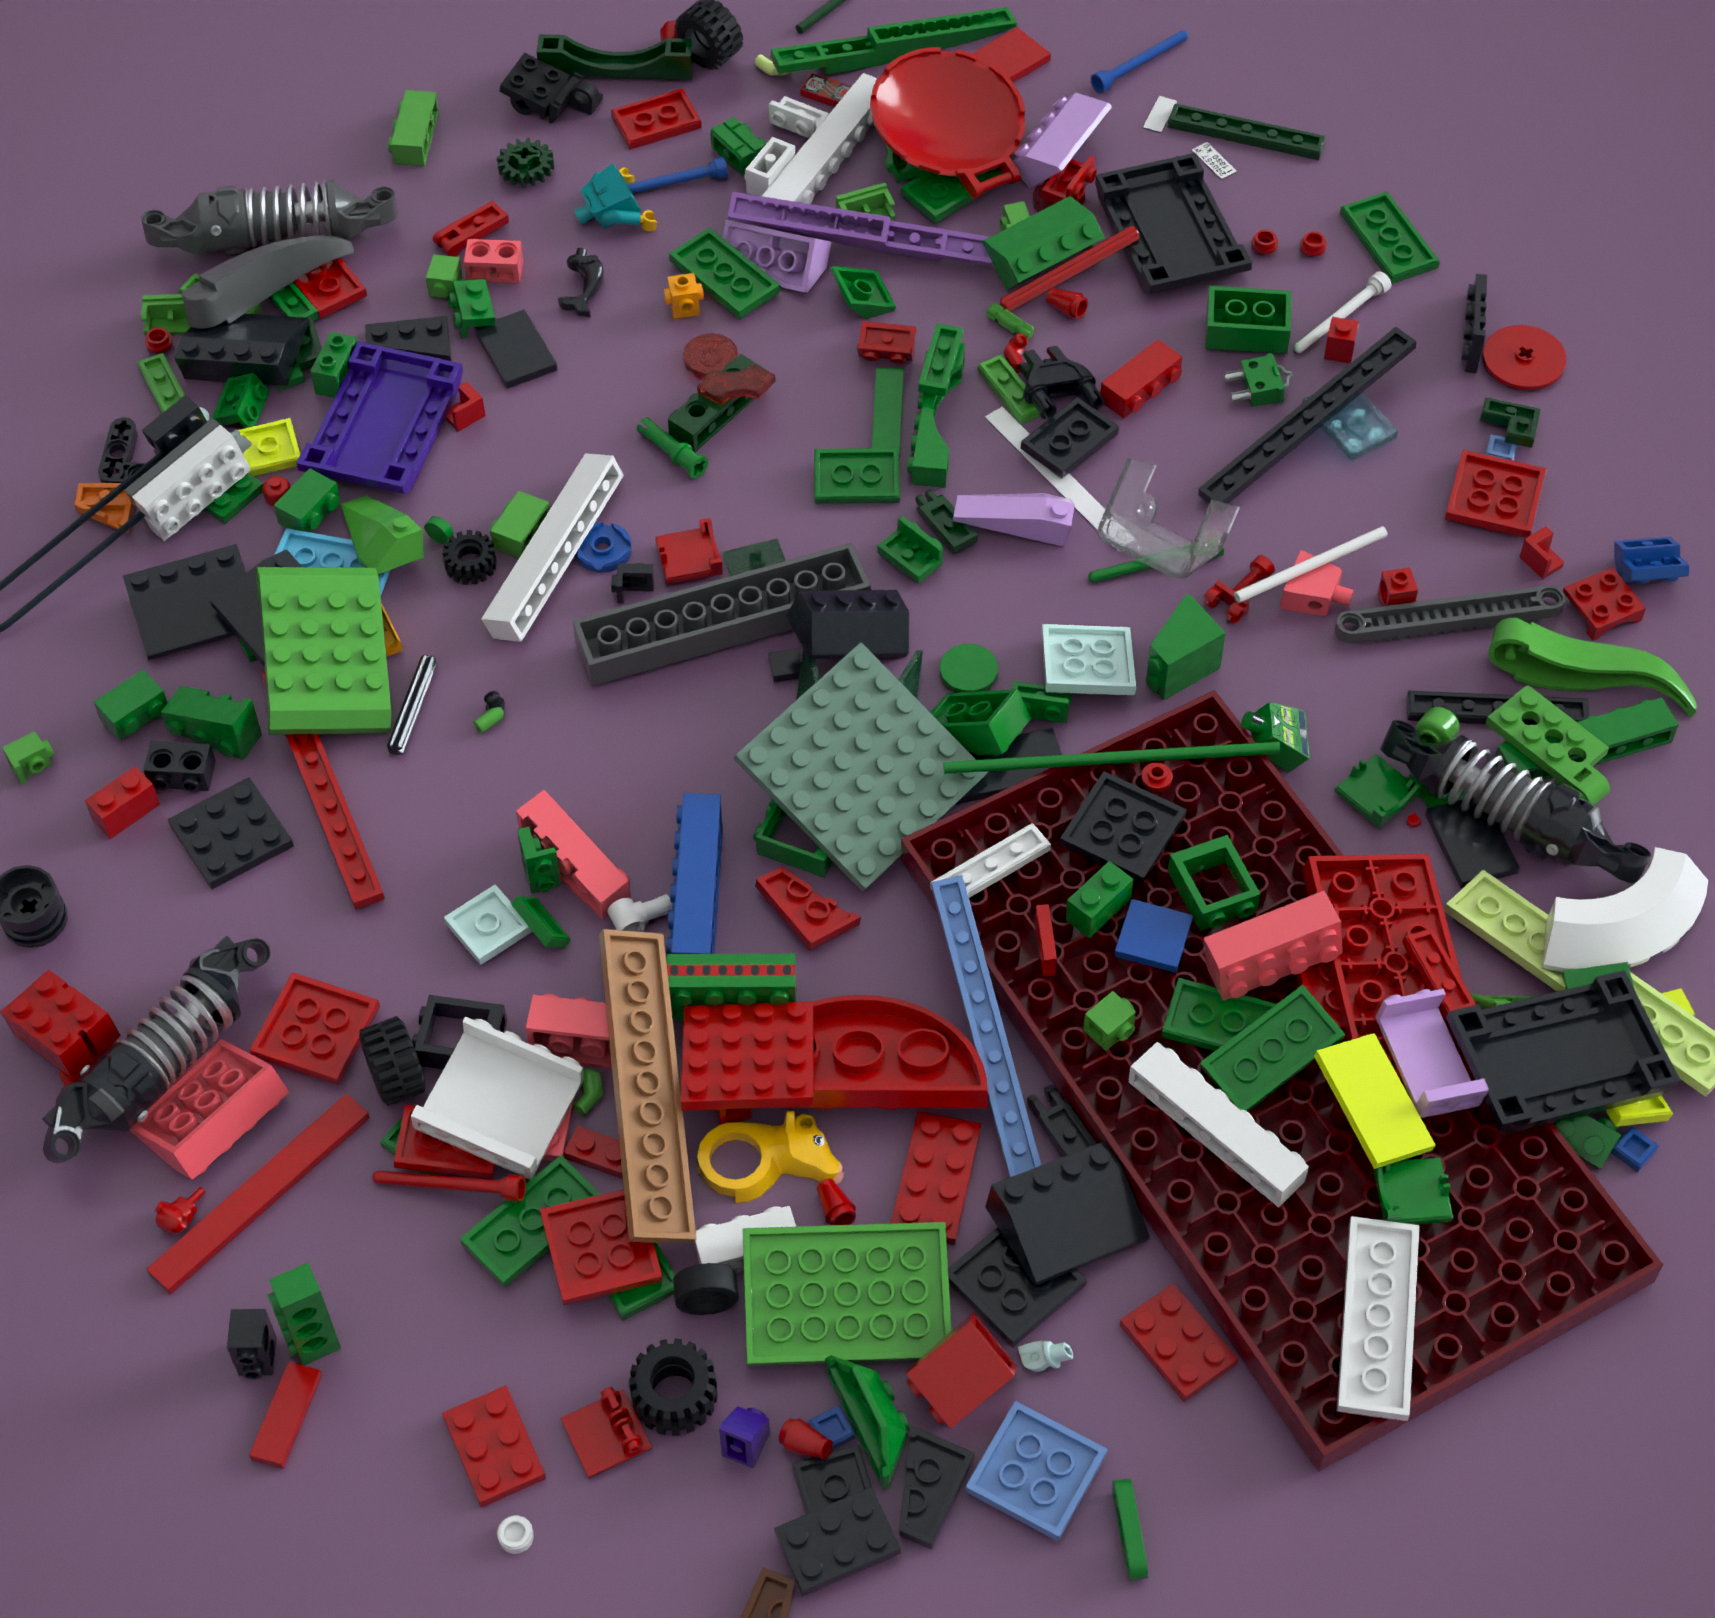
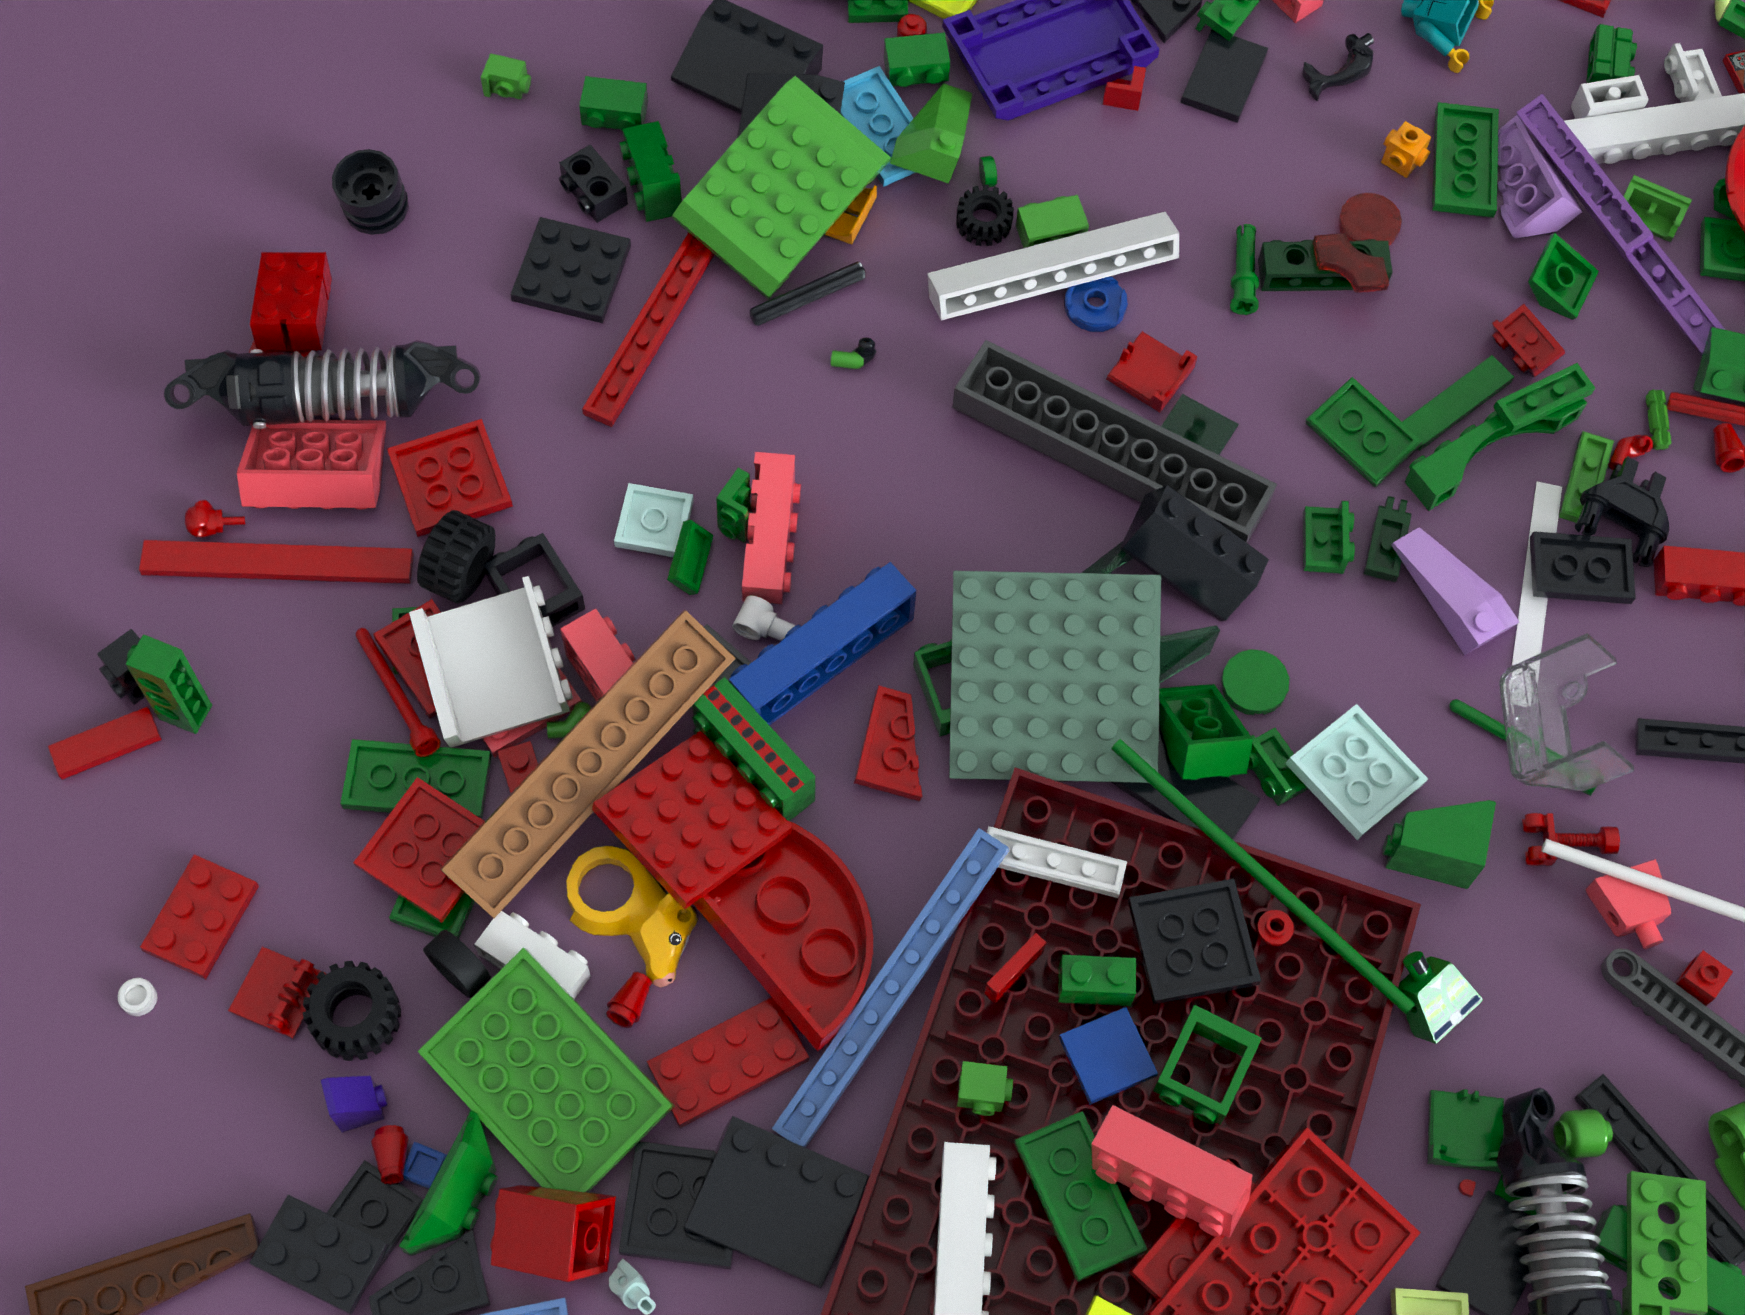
camera: 45 degrees right, 10 degrees up
(122, 802) = (523, 173): red brick -> none
(632, 578) = (1083, 348): black bracket -> none
(714, 169) = (1567, 63): blue piece -> none
(785, 665) = (1112, 532): black tile -> none
(1060, 1123) = (865, 1128): black hinge -> none
(1272, 1049) = (1074, 1253): green plate -> none

